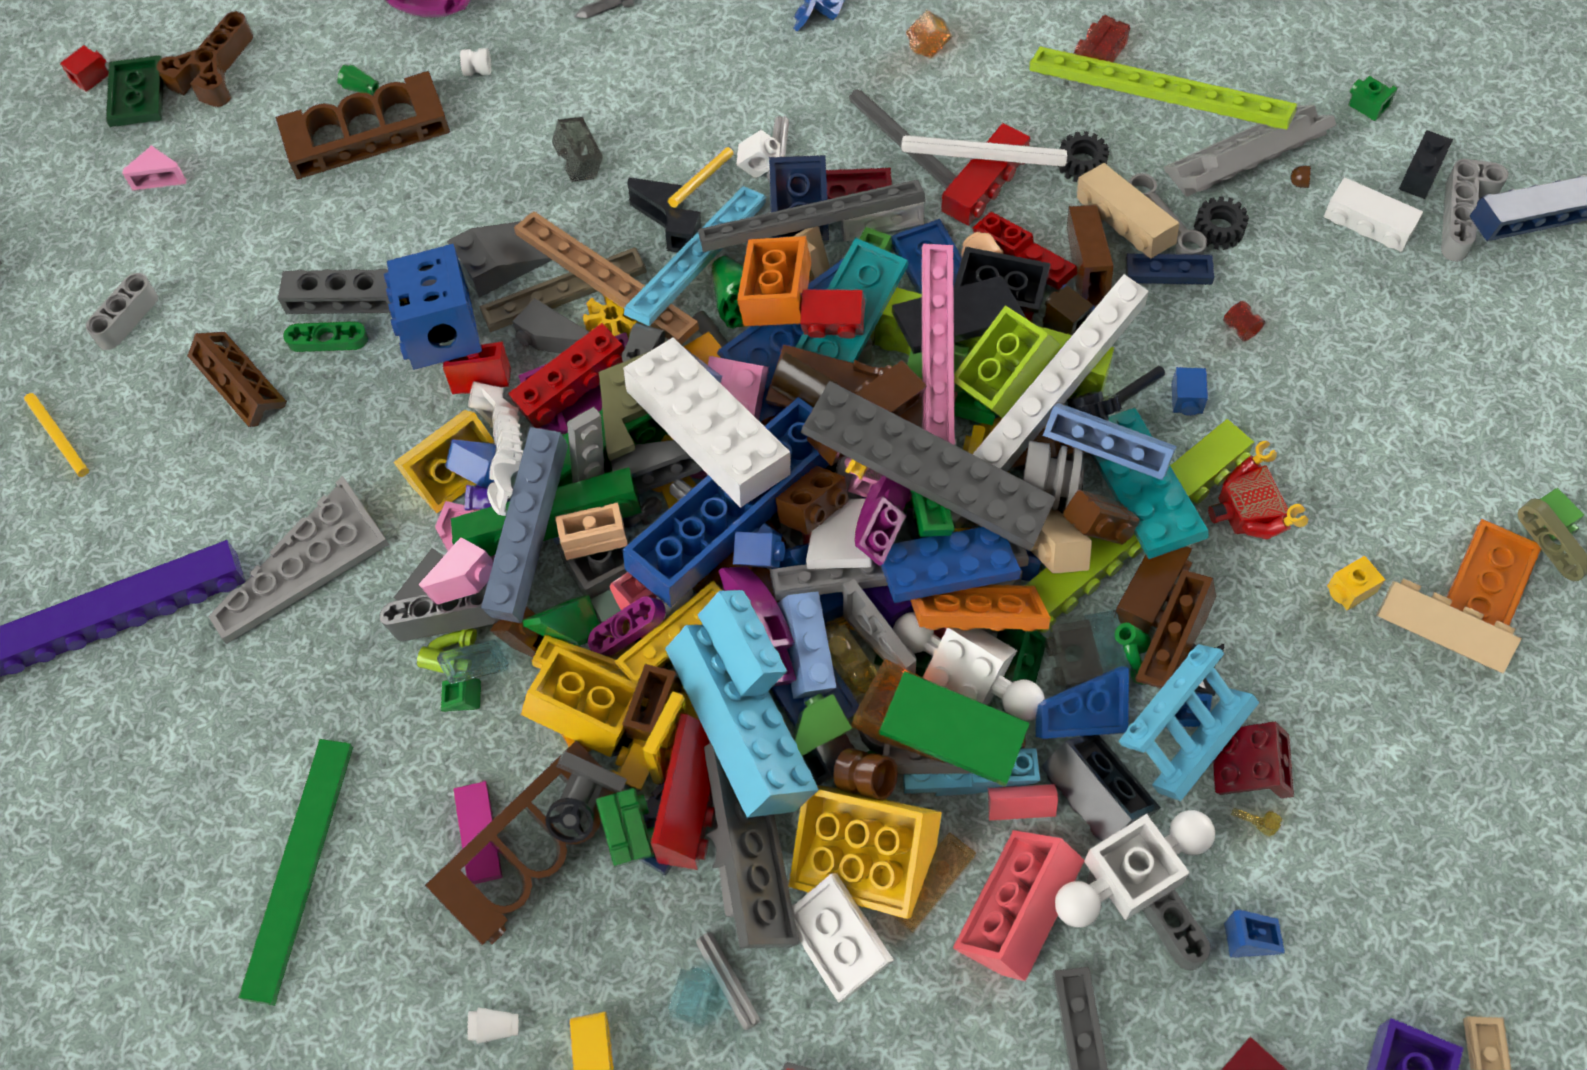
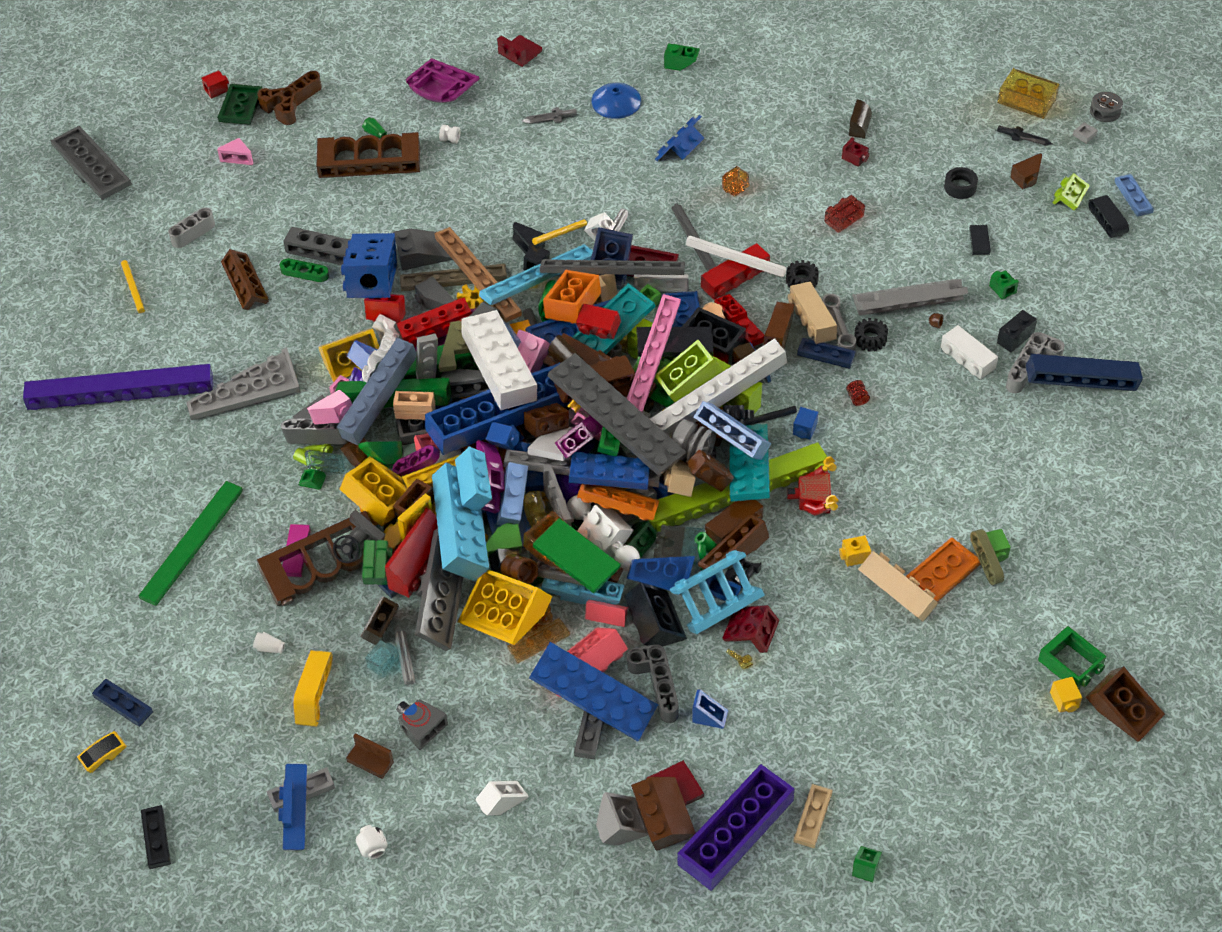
camera: 15 degrees right, 10 degrees down
(569, 142) = (488, 193): clear smoke brick -> none
(665, 930) = (379, 620): none -> dark brown brick
(839, 938) = (473, 650): white tile -> none
(1066, 961) = (593, 691): none -> blue plate
(1135, 867) = (649, 652): white brick -> none
(1164, 87) = (867, 246): lime plate -> none
(1305, 39) = (979, 240): none -> black tile

